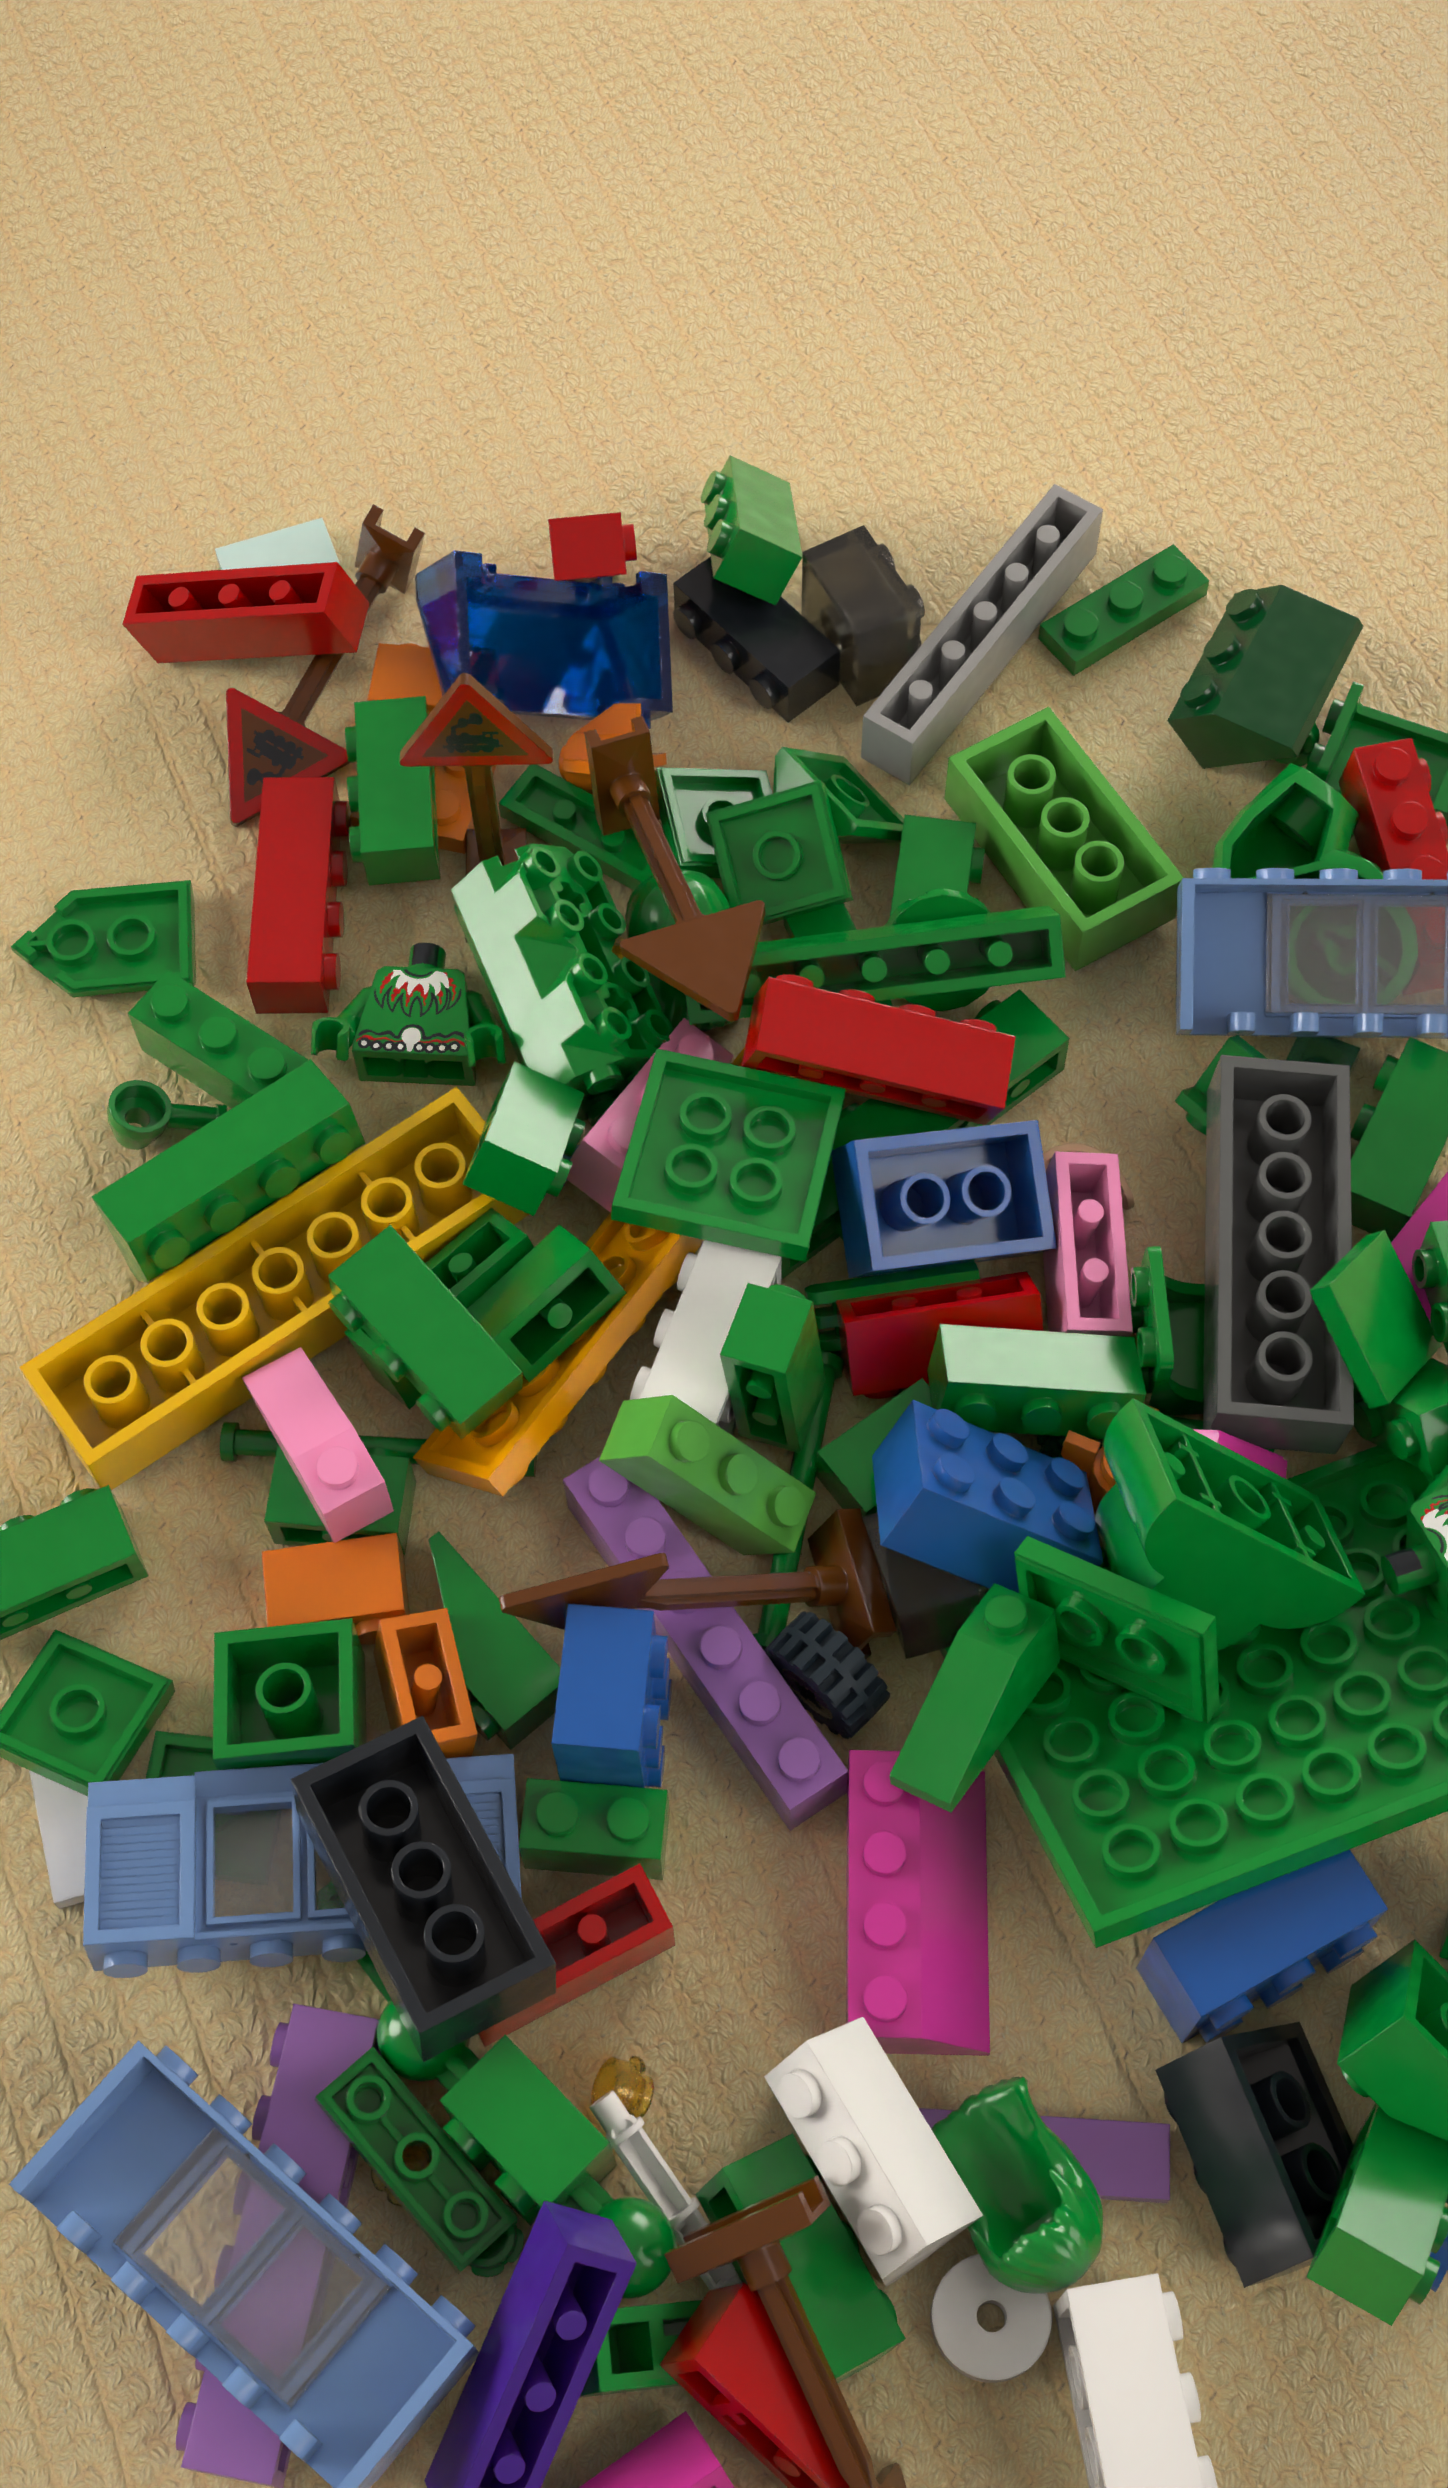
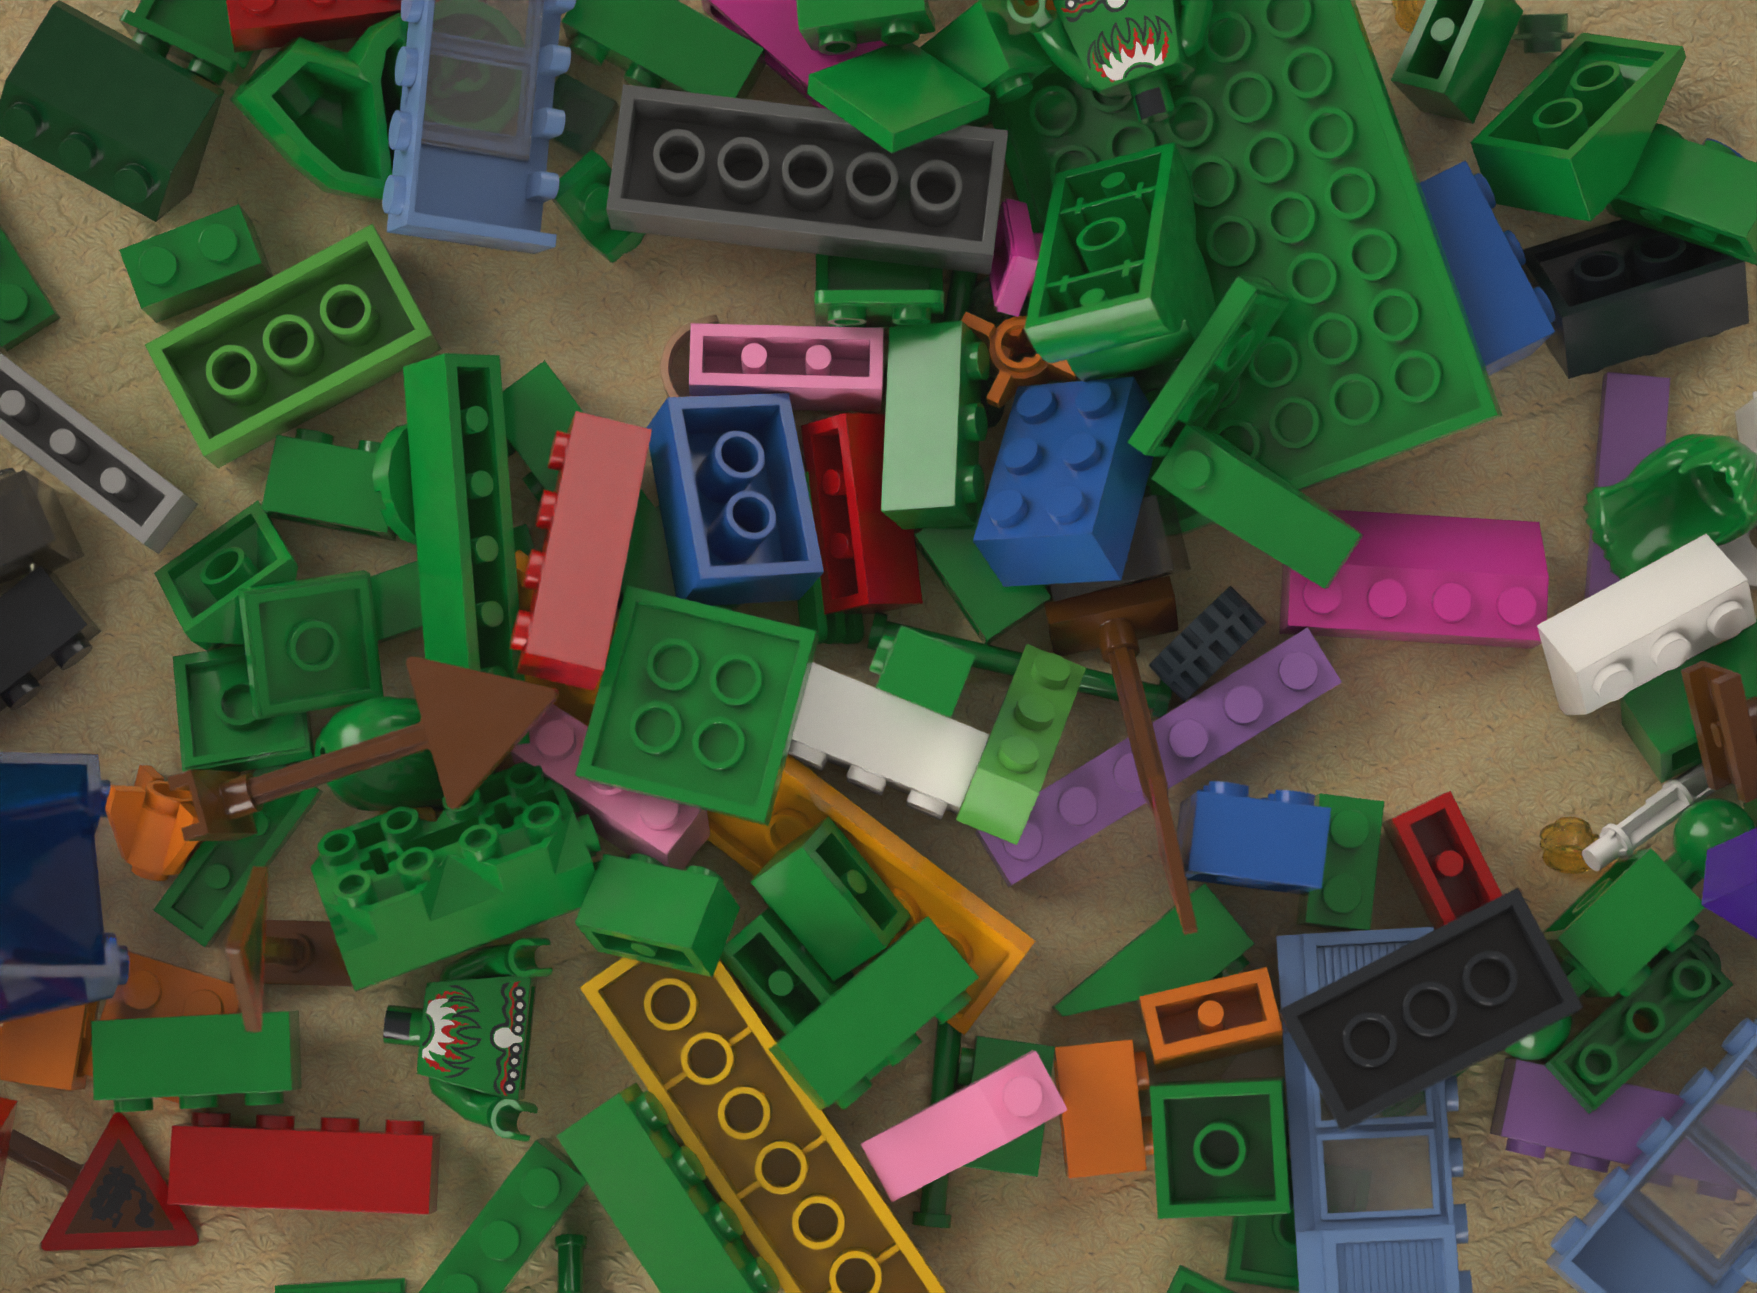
camera: 90 degrees left, 20 degrees up
(1135, 757) = (196, 263): none -> green brick

